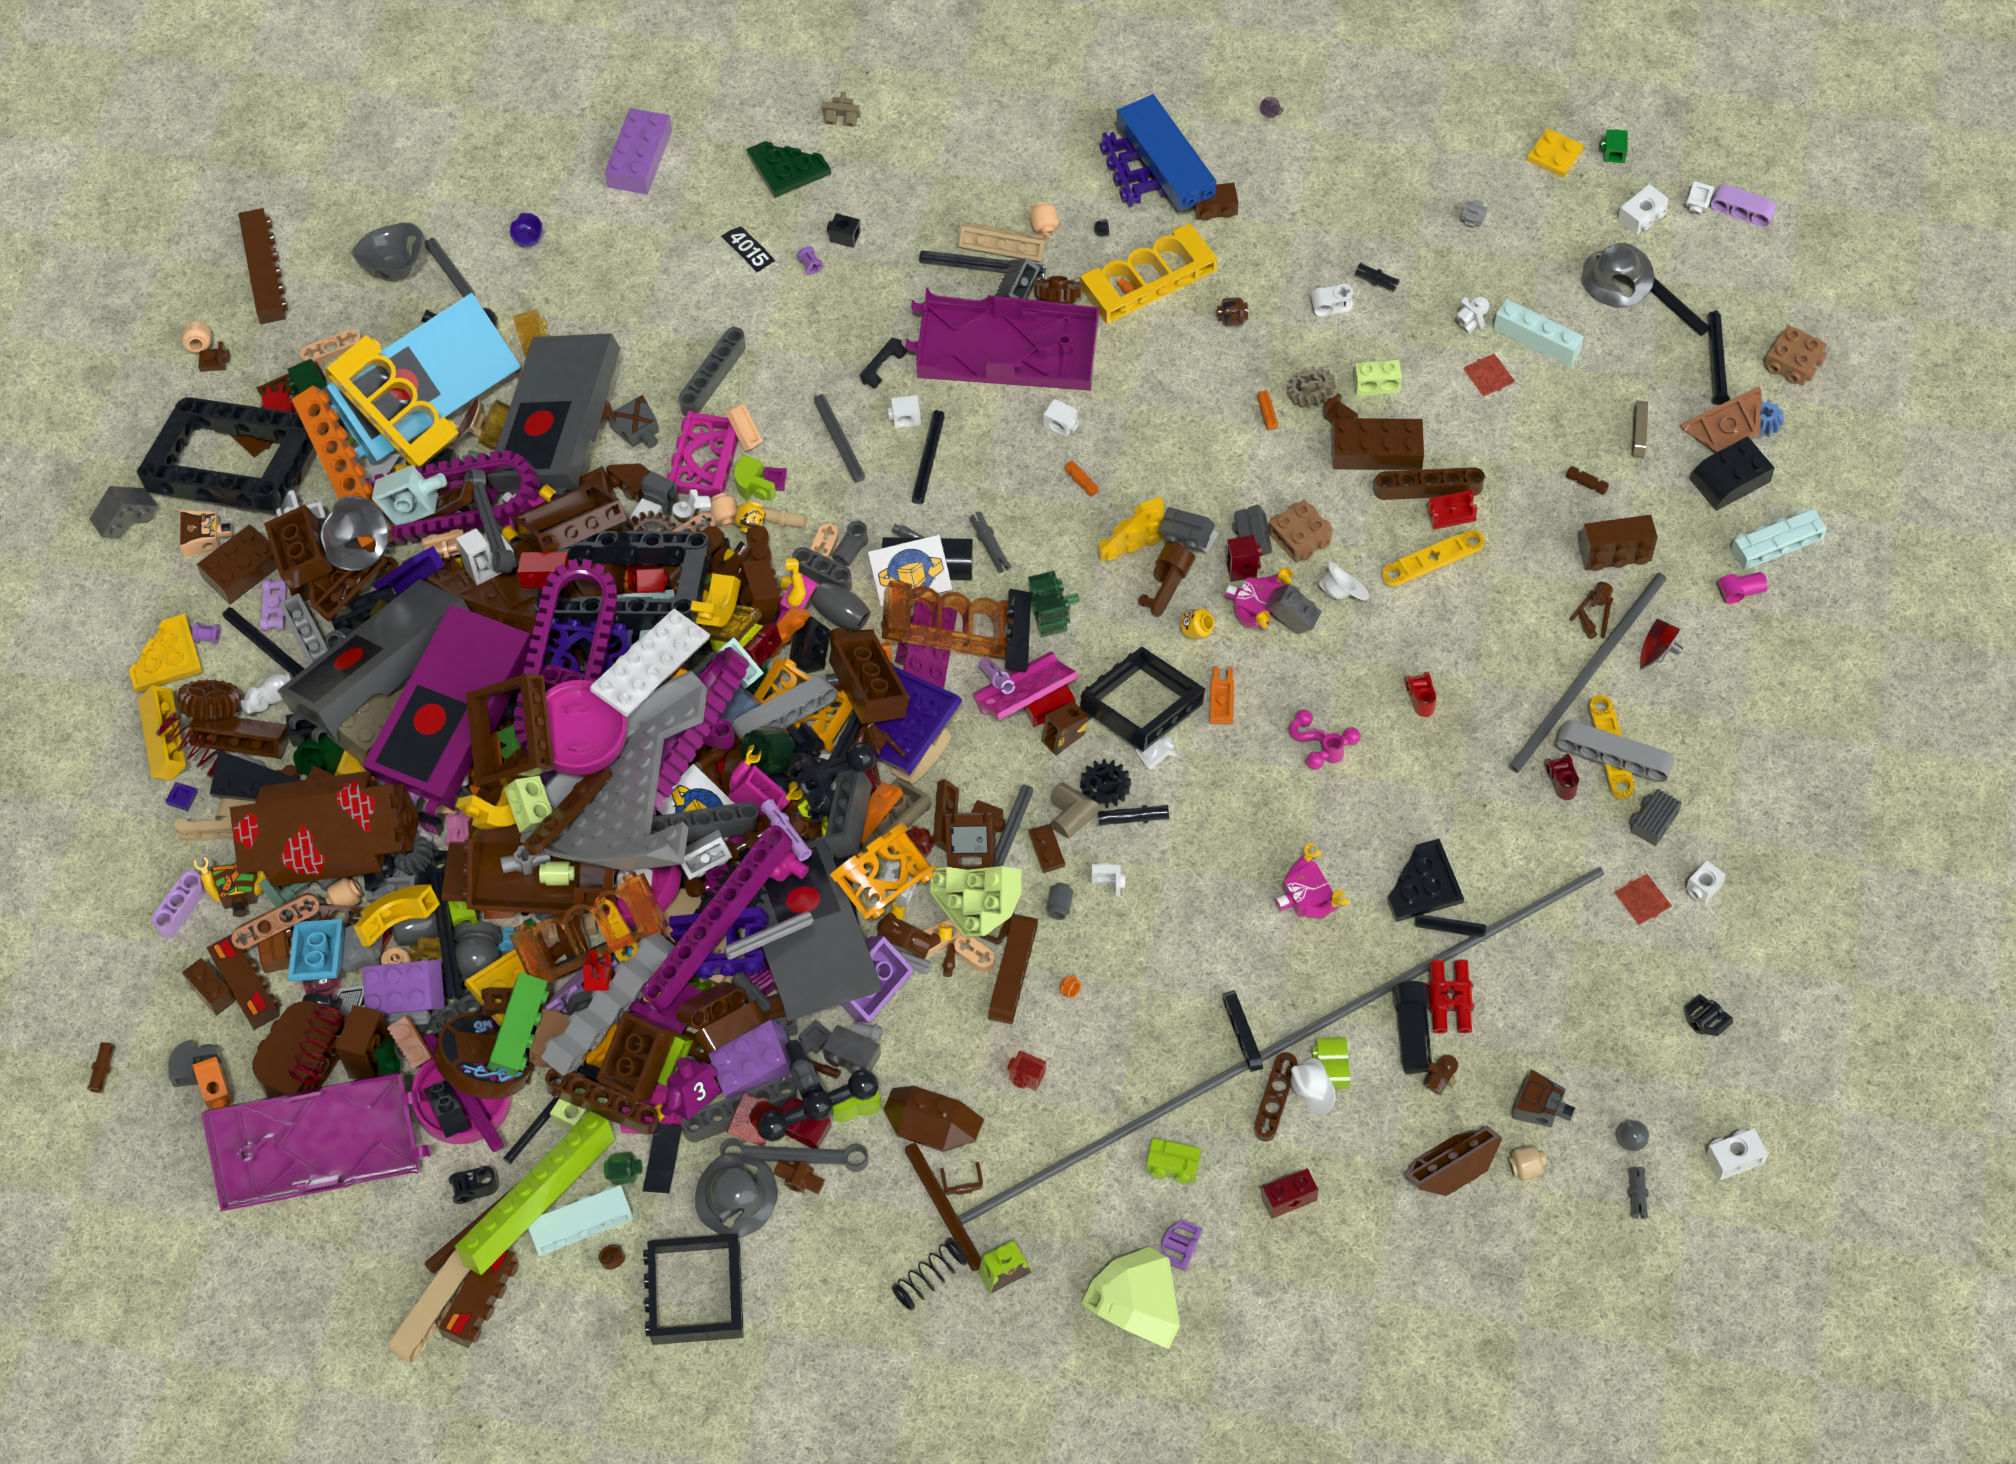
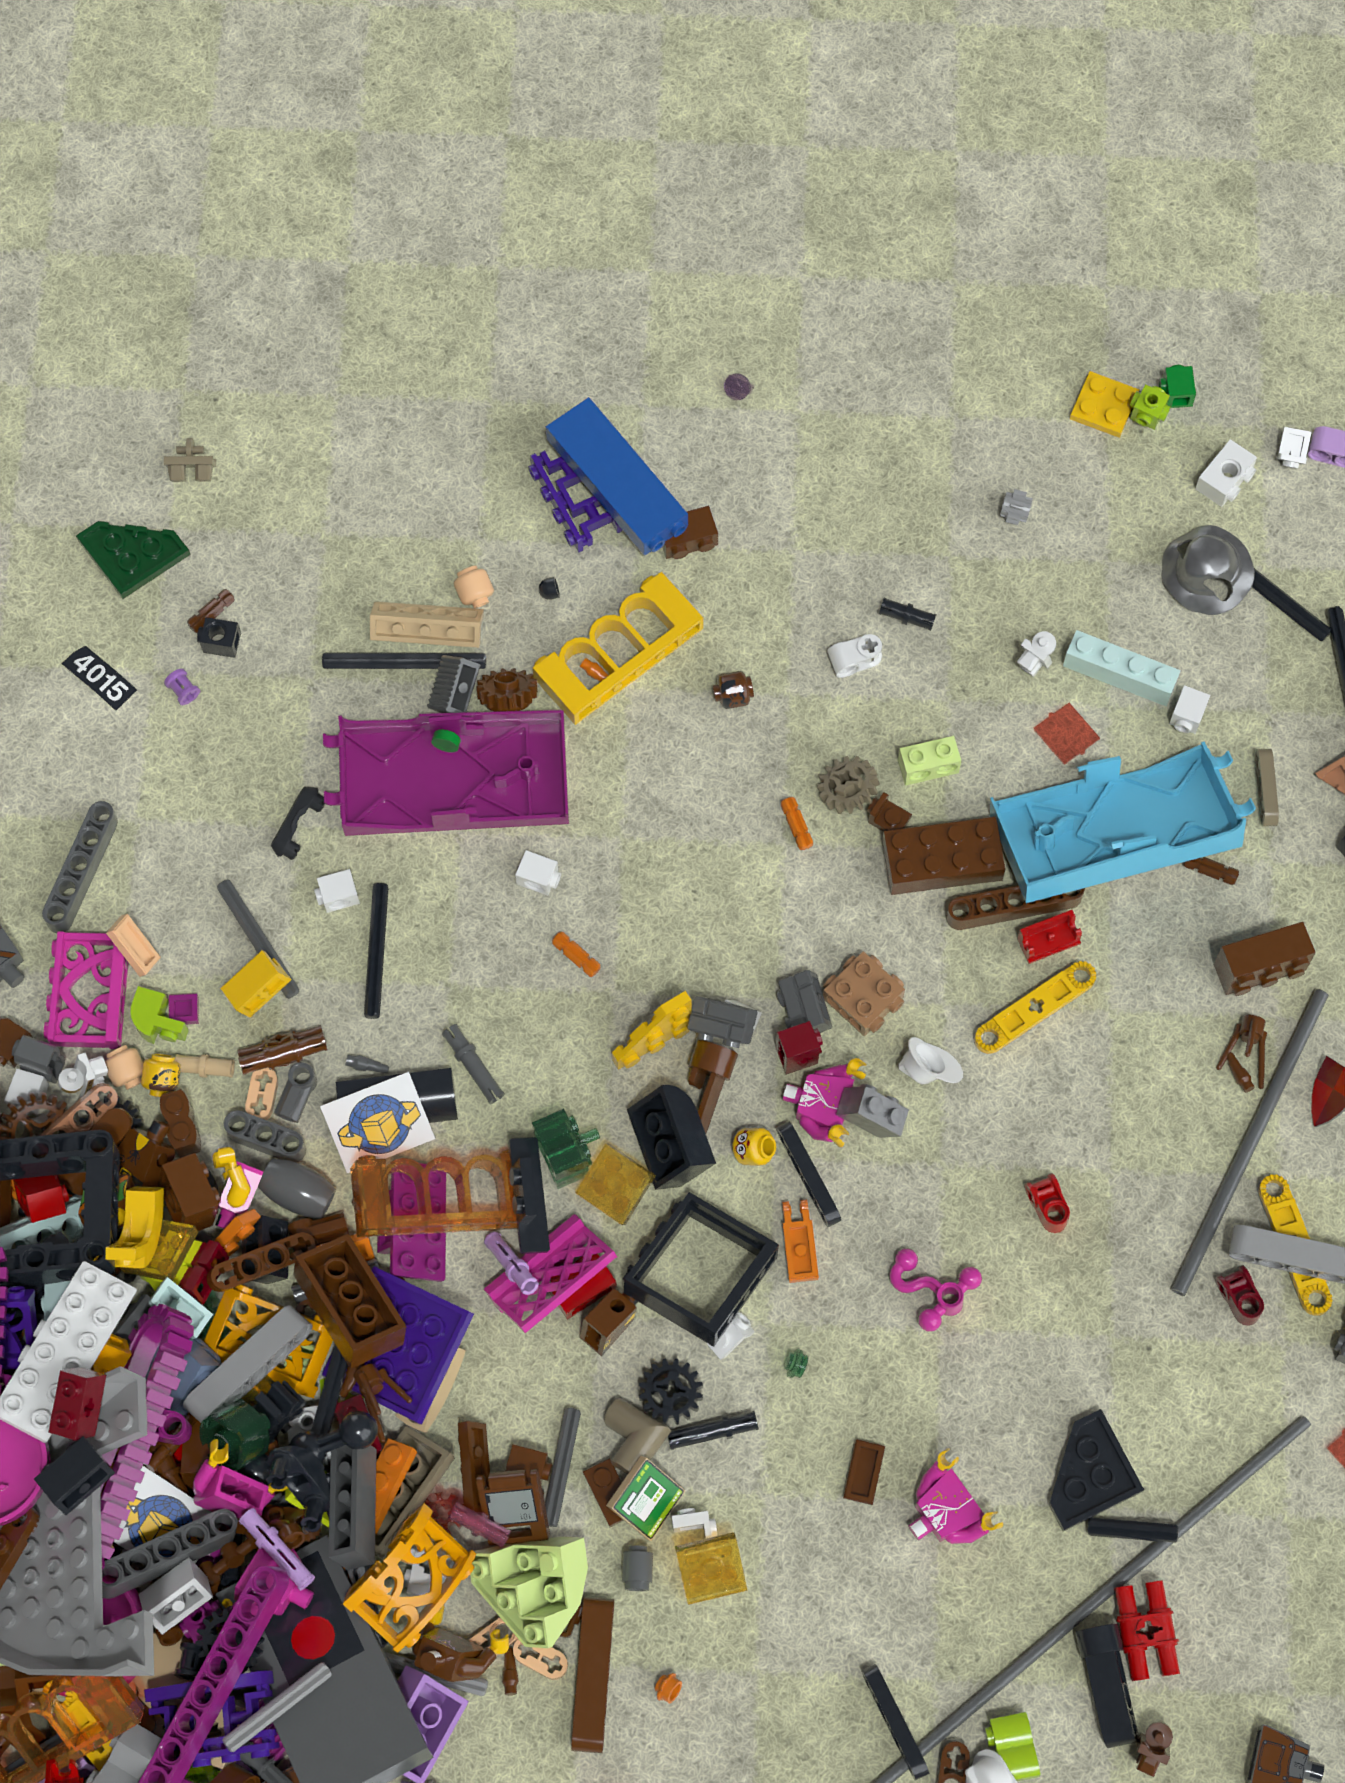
camera: 10 degrees left, 10 degrees up
(644, 739) = (74, 1475): none -> black brick
(654, 691) = (77, 1403): none -> dark red brick
(804, 641) = (260, 1260): none -> reddish brown beam
(832, 465) = (255, 984): none -> yellow hinge
(845, 511) = (282, 1050): none -> reddish brown pin
(852, 206) = (211, 609): none -> reddish brown axle
(942, 848) = (479, 1524): none -> clear pink pin
(1005, 318) = (446, 740): none -> green tile
(1074, 851) = (646, 1498): none -> tile
(1085, 635) = (615, 1184): none -> clear yellow plate
(1116, 905) = (711, 1568): none -> clear yellow plate
(1133, 606) = (671, 1137): none -> black brick
(1205, 777) = (795, 1363): none -> clear green plate
(1237, 649) = (808, 1174): none -> black beam
(1246, 859) = (864, 1472): none -> reddish brown tile
(1517, 437) = (1119, 823): none -> medium azure piece
(1587, 368) = (1189, 710): none -> white brick
(1590, 156) = (1150, 406): none -> lime brick

